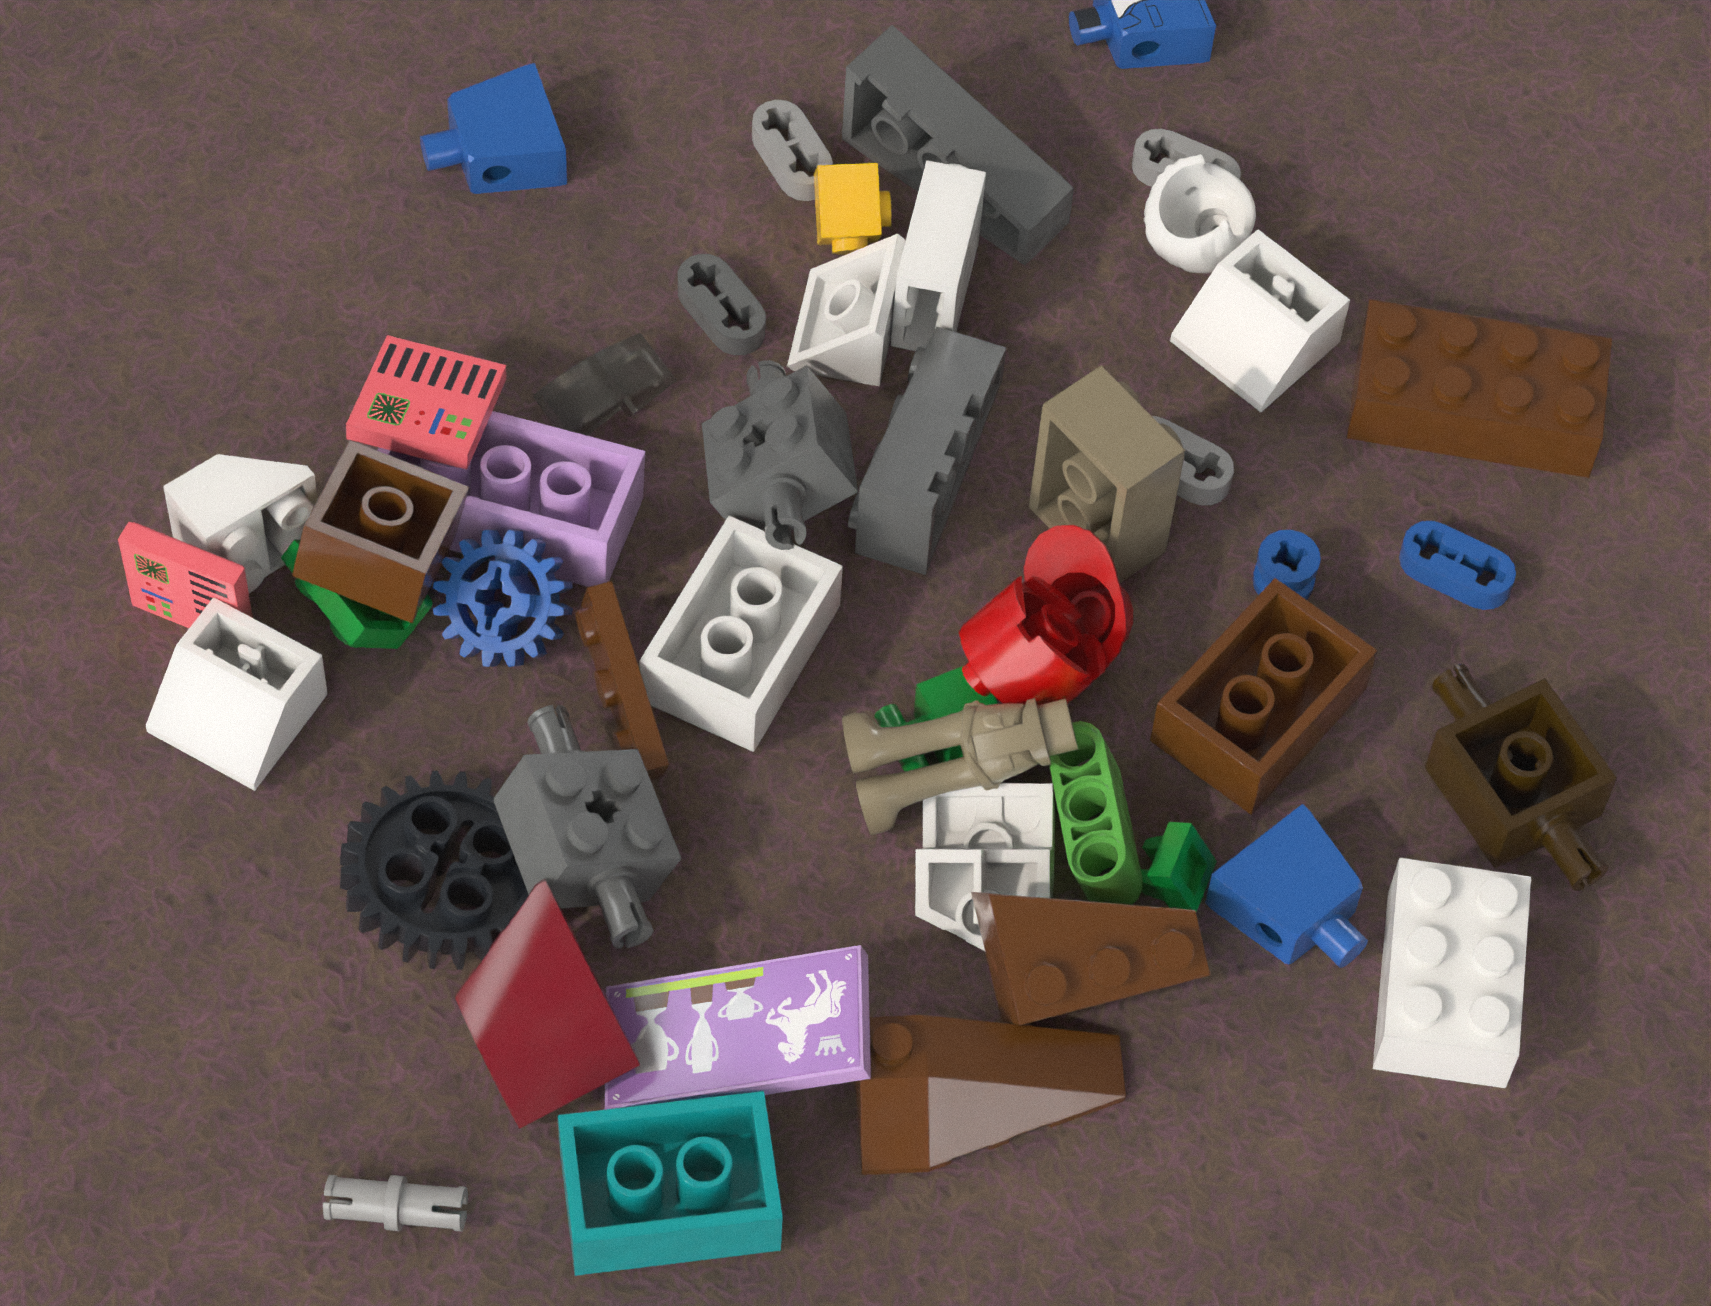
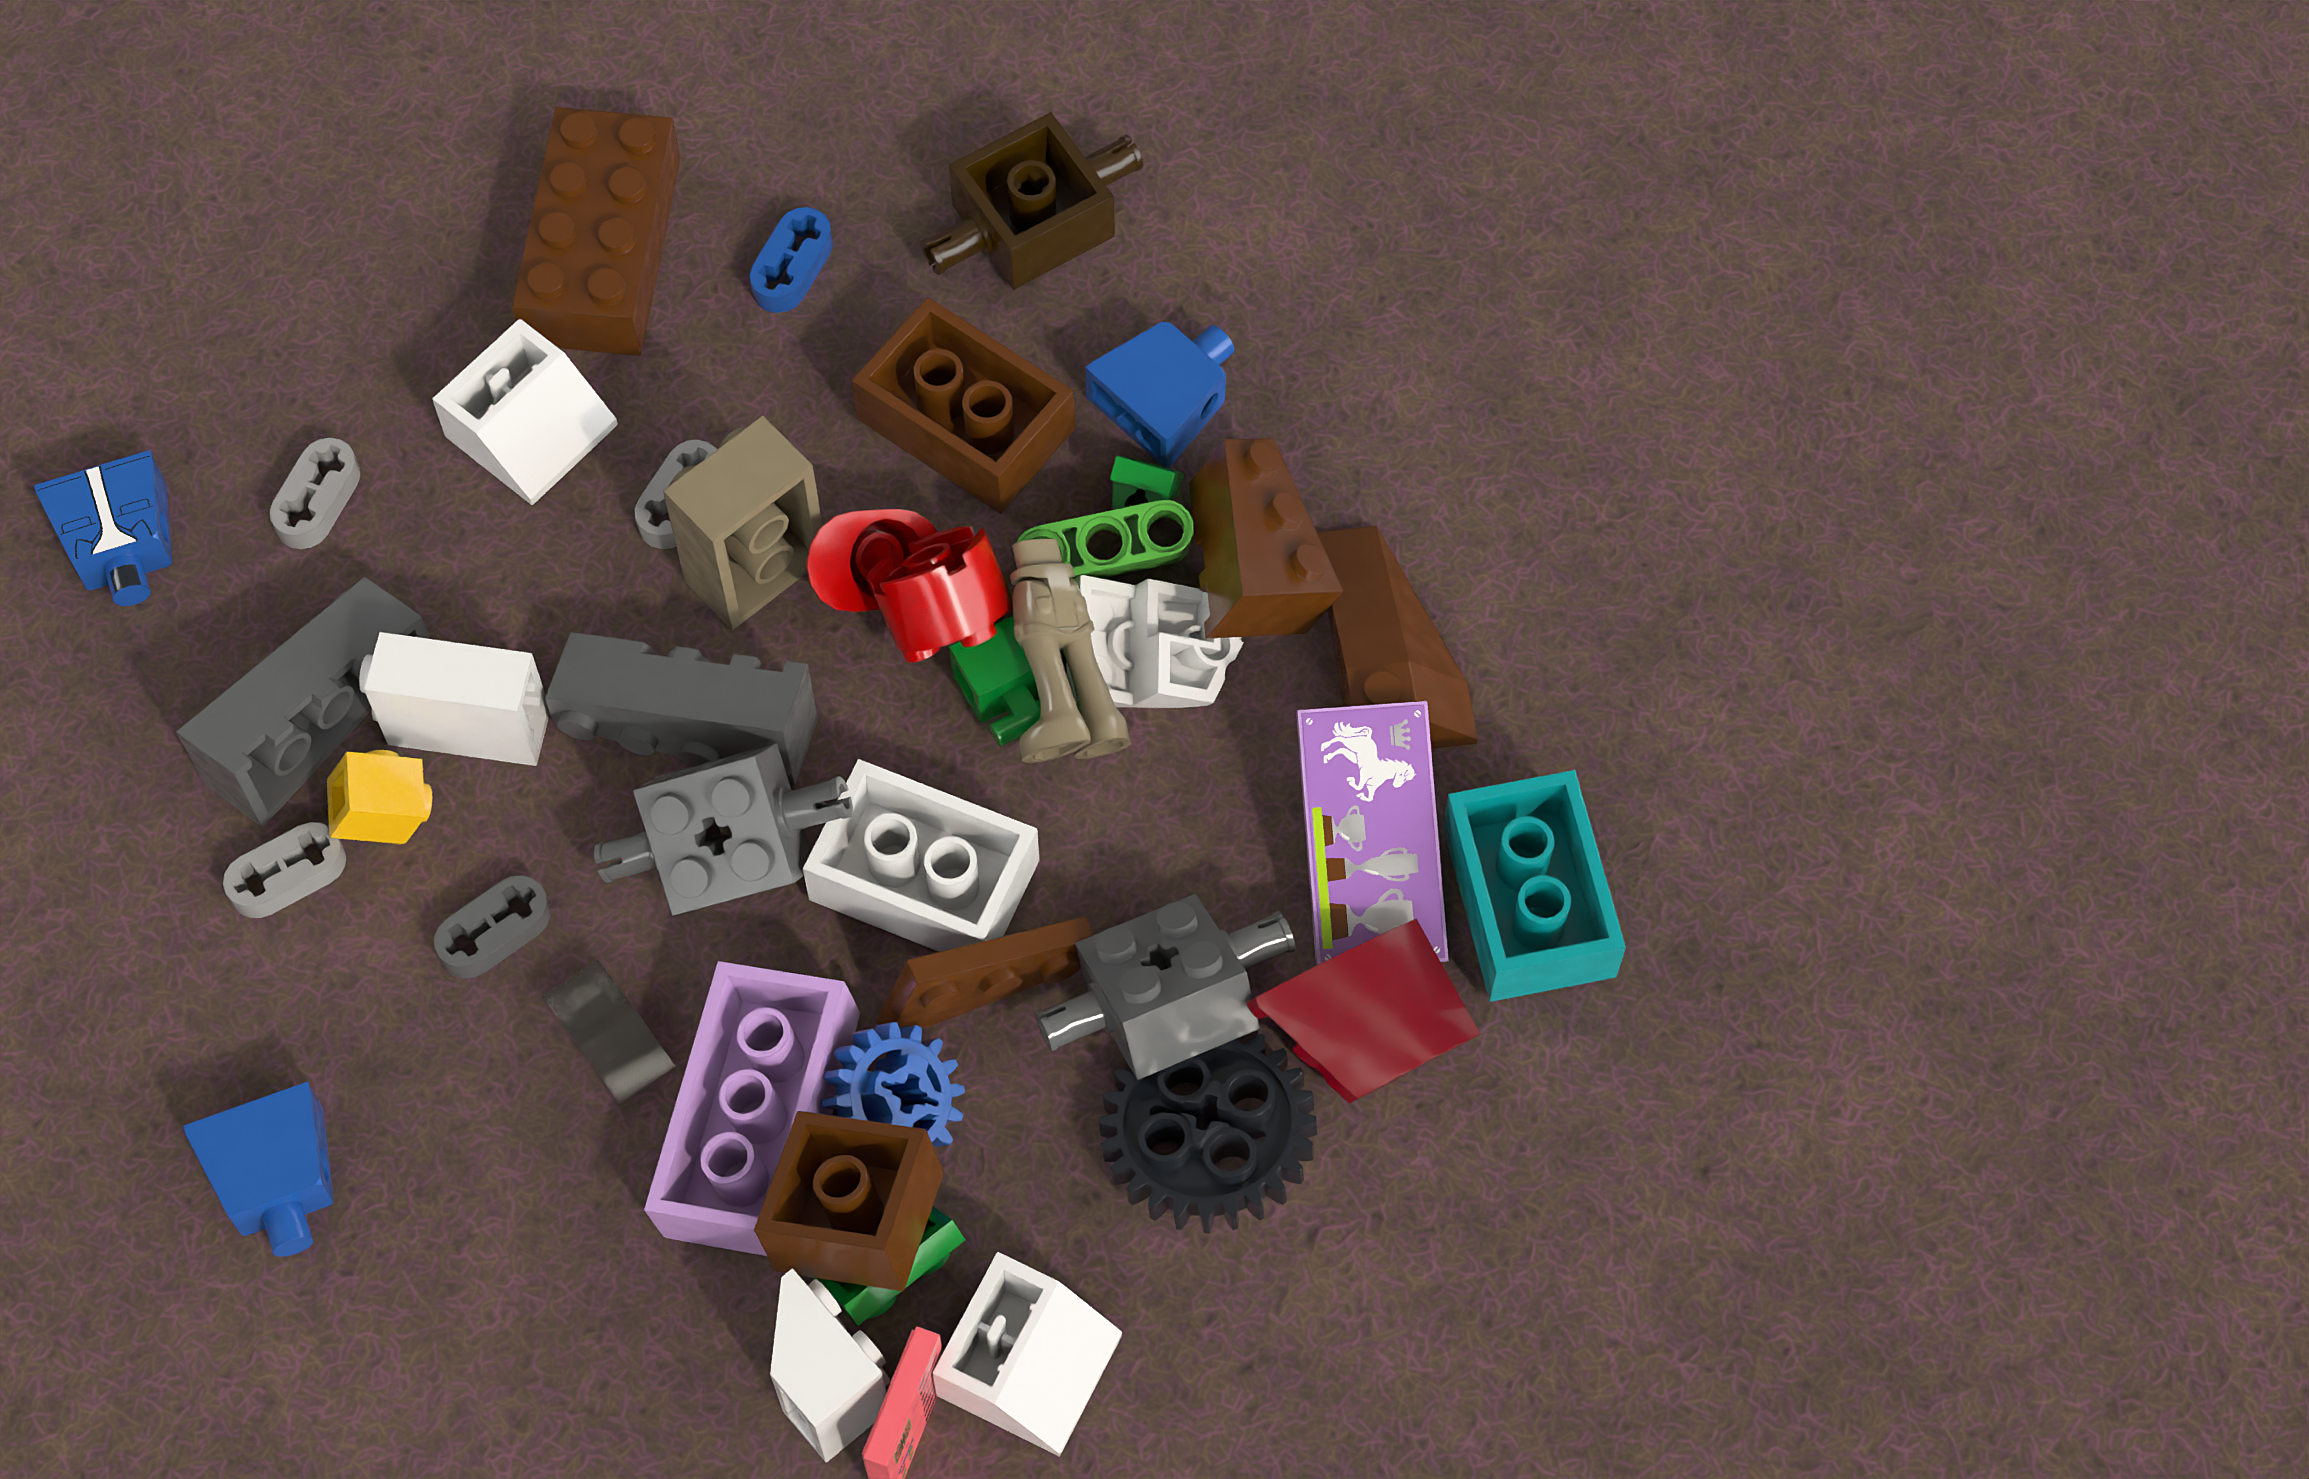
camera: 90 degrees left, 5 degrees up
(395, 1203) = (1571, 1139): light grey pin -> none
(426, 402) = (672, 1179): coral tile -> none
(849, 314) = (511, 790): white slope -> none
(1193, 198) = (418, 446): white piece -> none
(1292, 548) = (798, 408): blue wheel -> none
(1452, 973) = (1236, 260): white brick -> none

